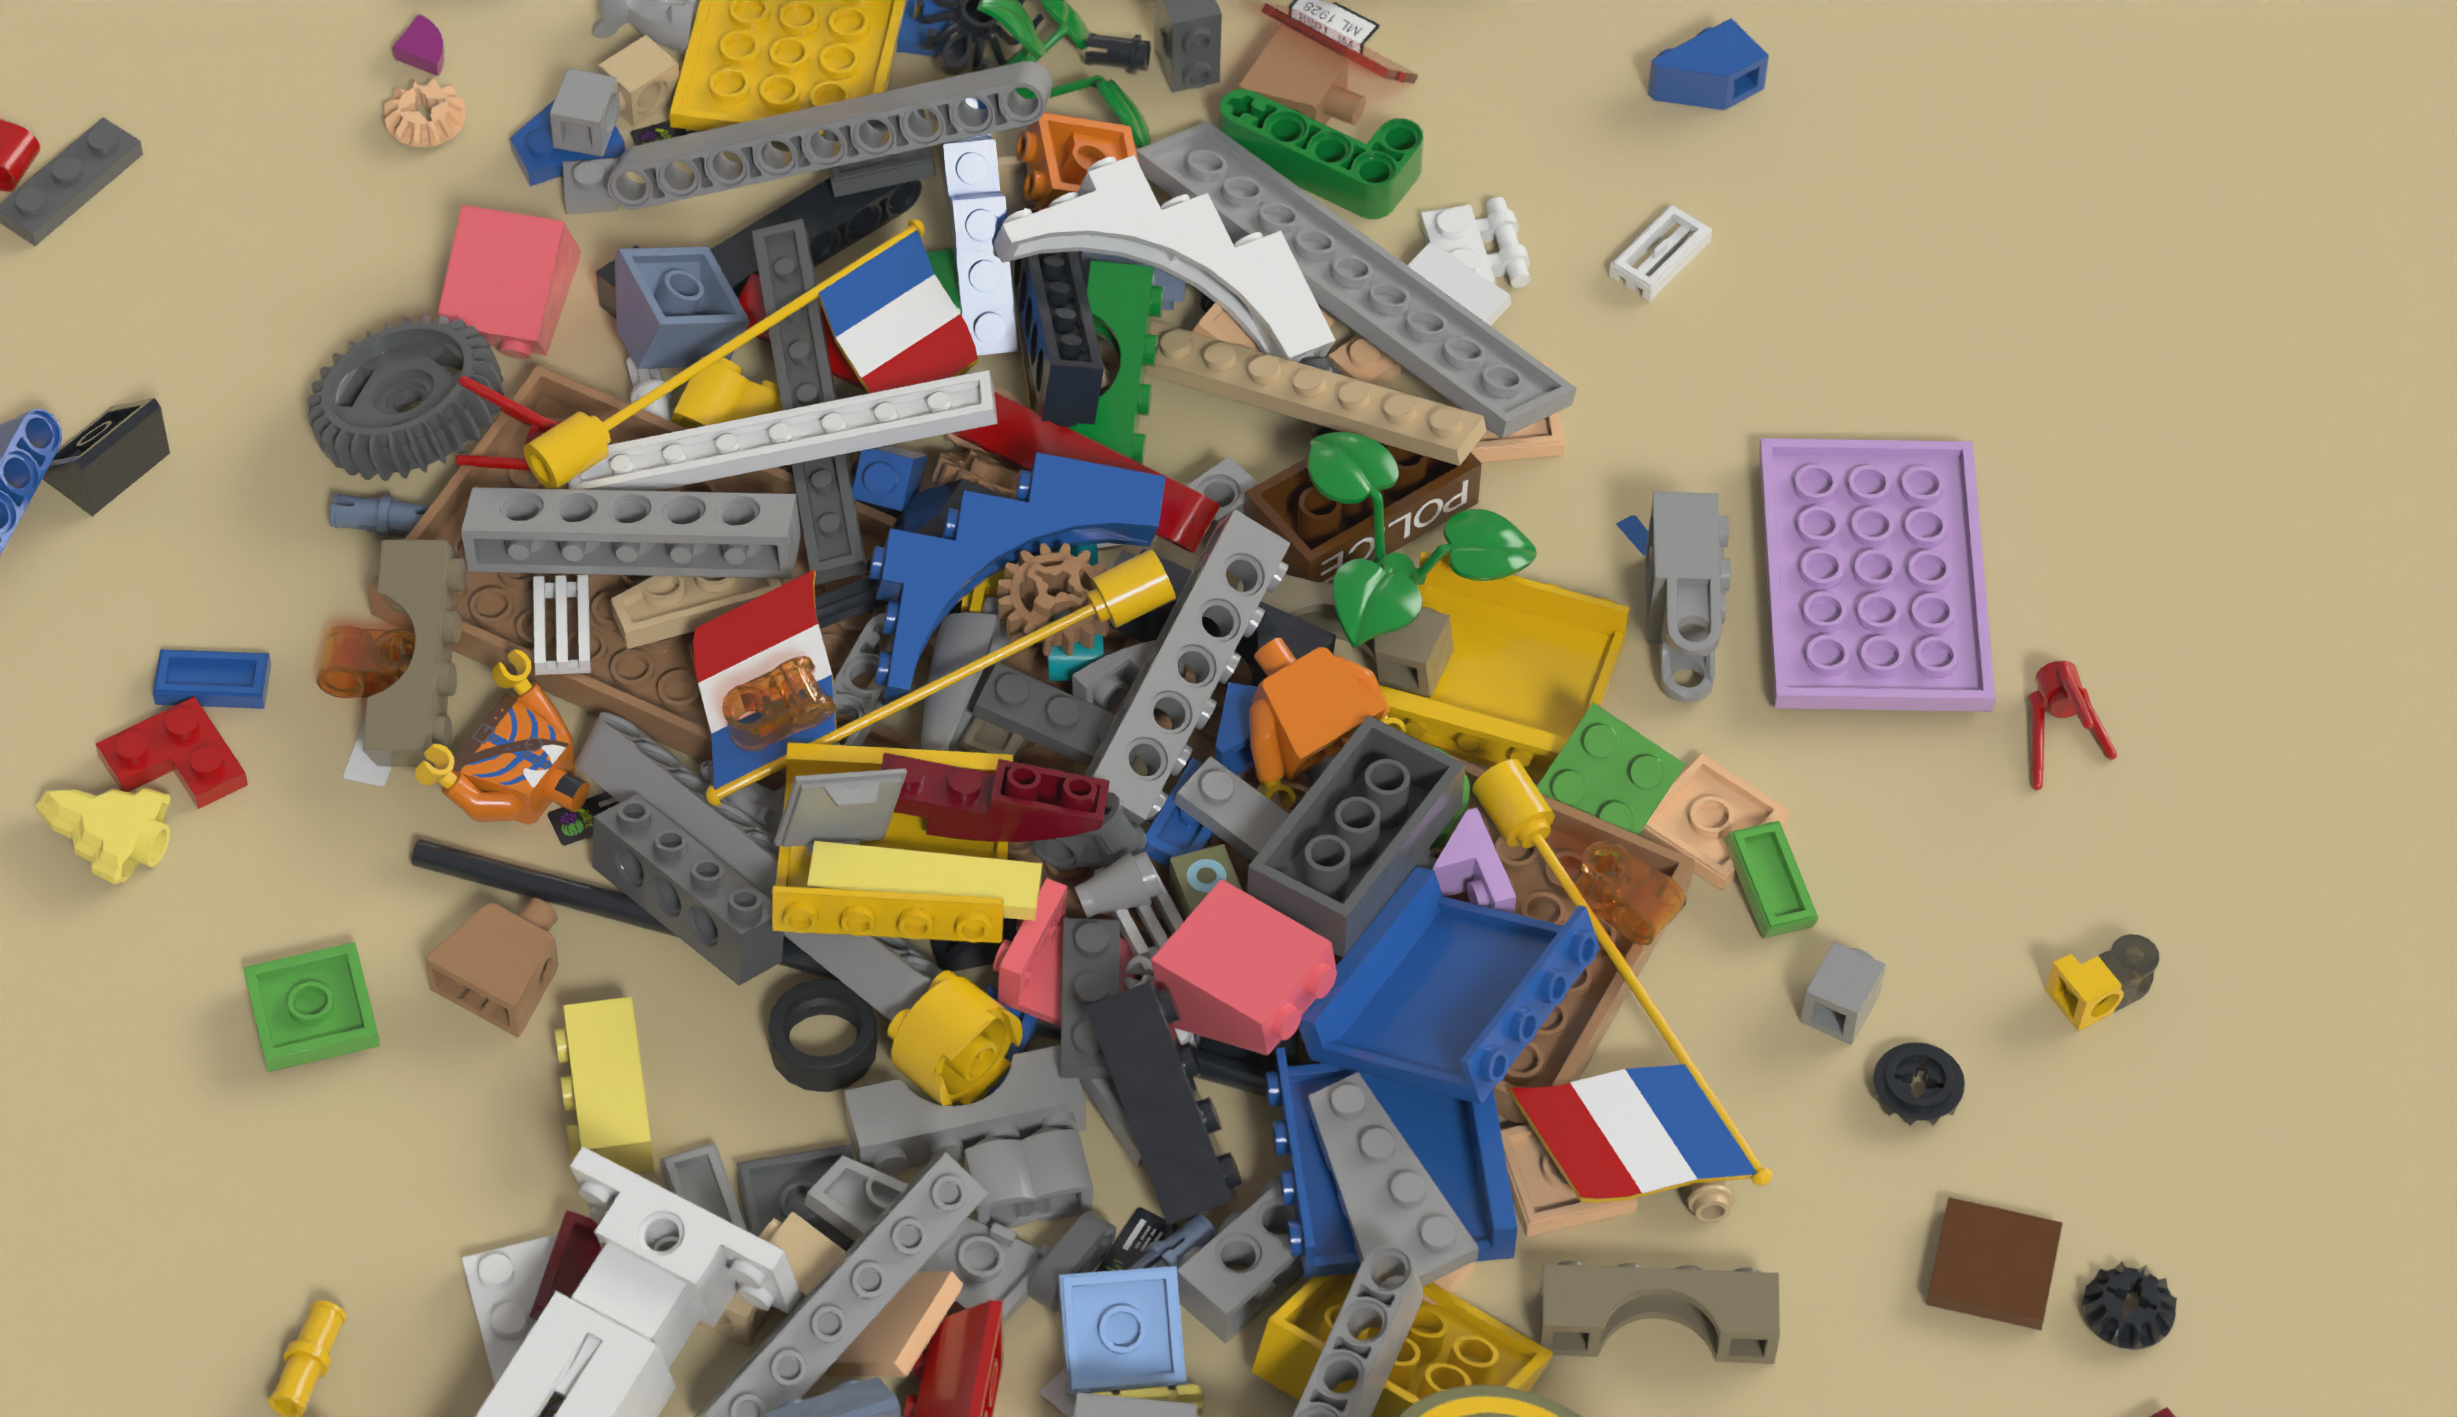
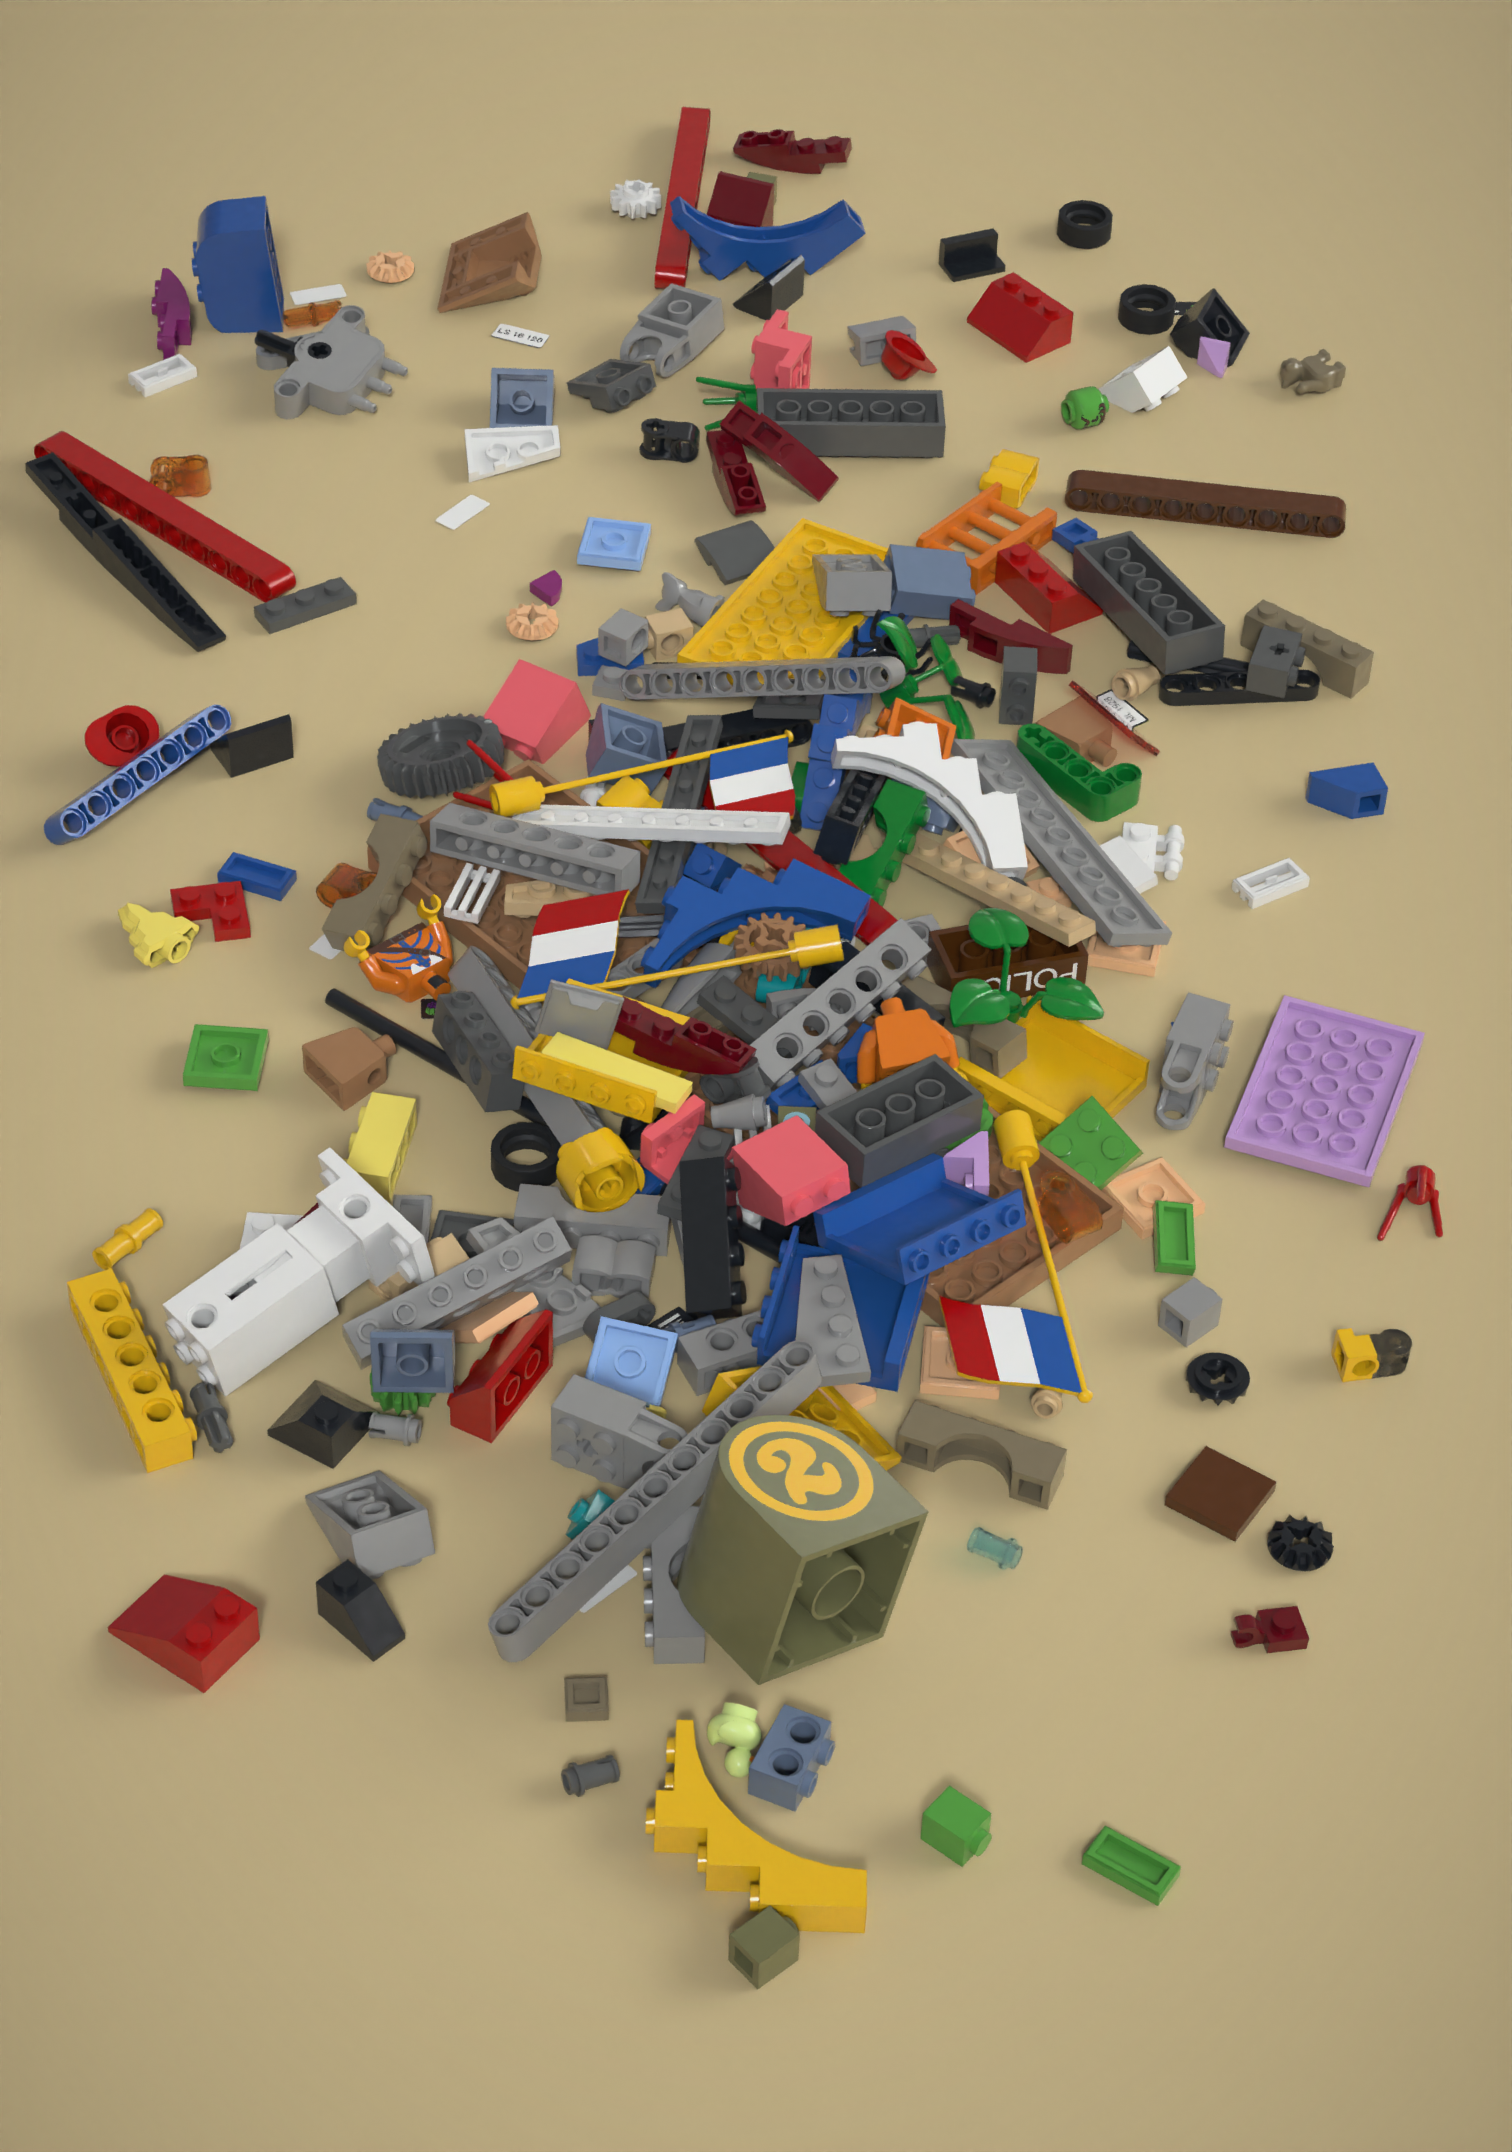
camera: 20 degrees right, 10 degrees down
(780, 702) = (568, 957): clear orange piece -> none

